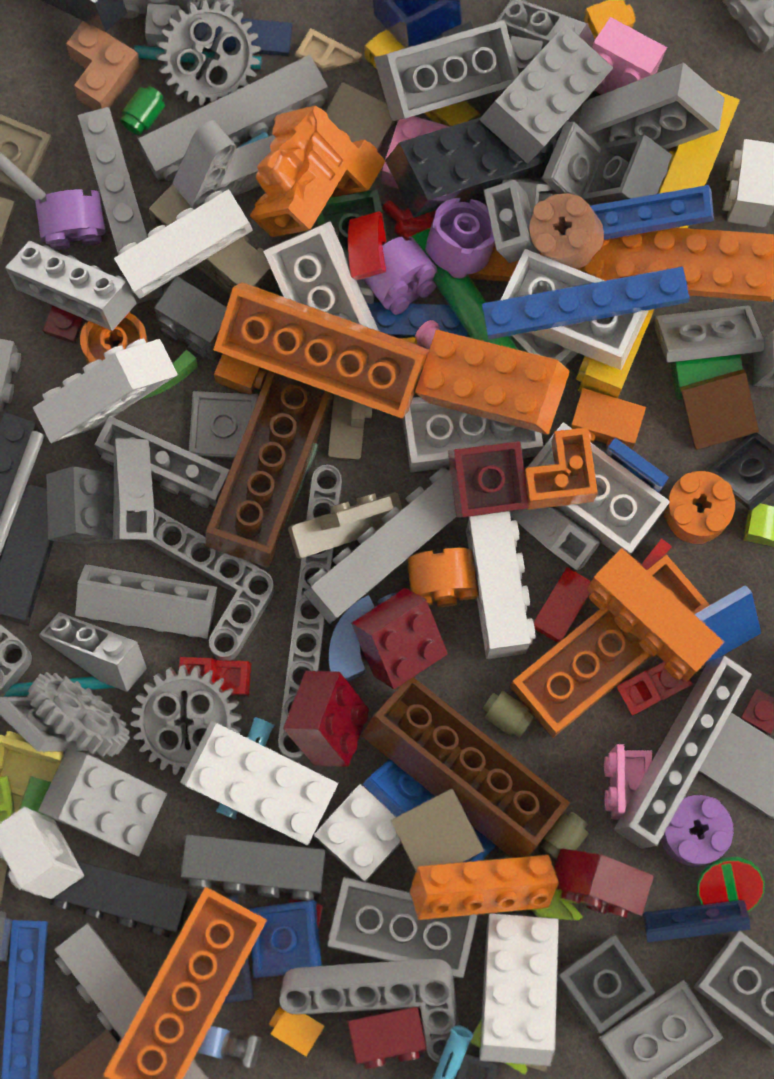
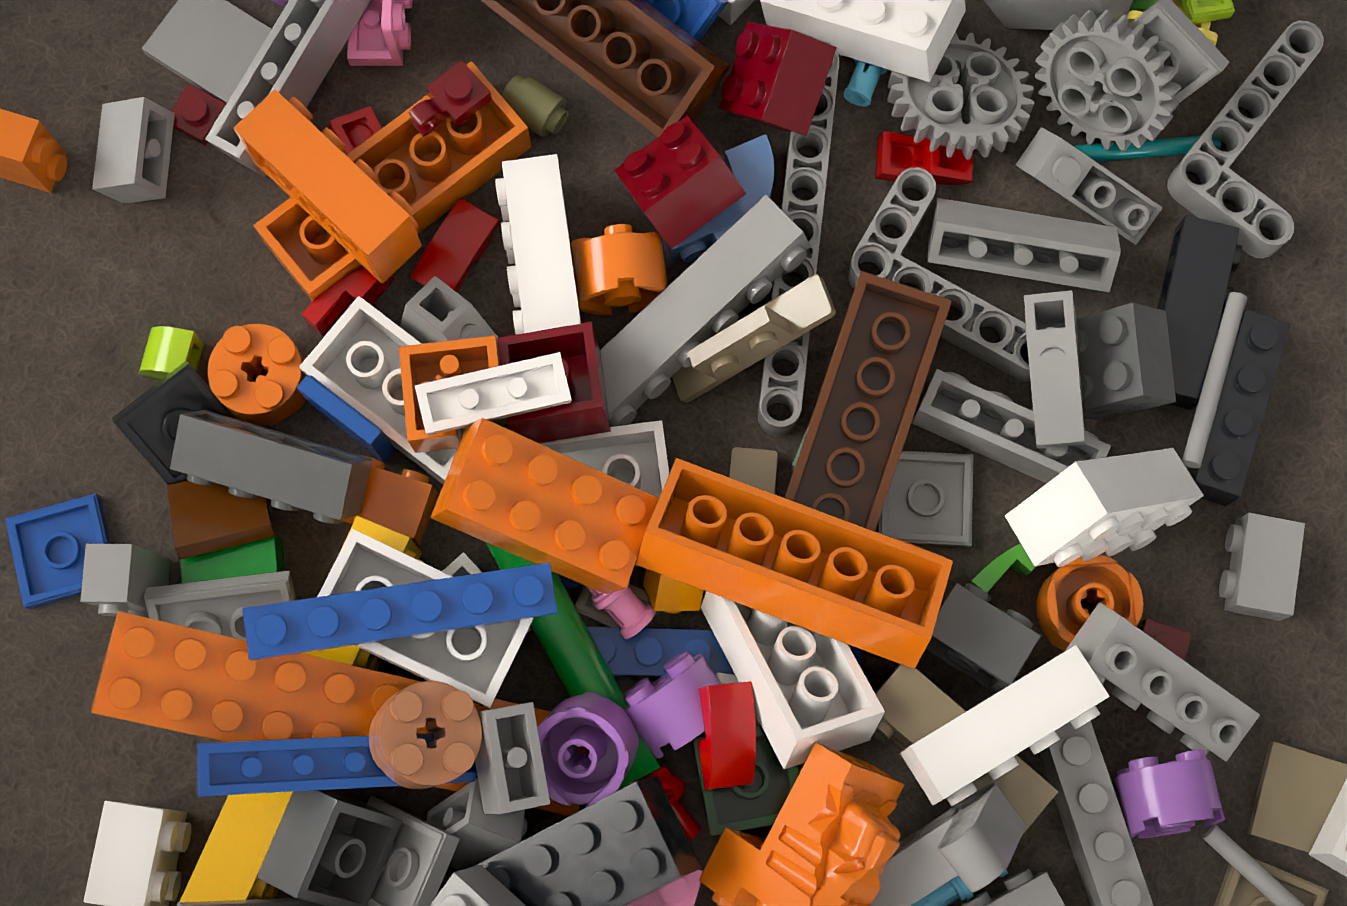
camera: 175 degrees left, 0 degrees up
(530, 453) = (493, 393): none -> white plate
(567, 699) = (453, 96): none -> dark red plate
(684, 431) = (270, 465): none -> dark grey brick
(732, 620) = (236, 210): blue tile -> none

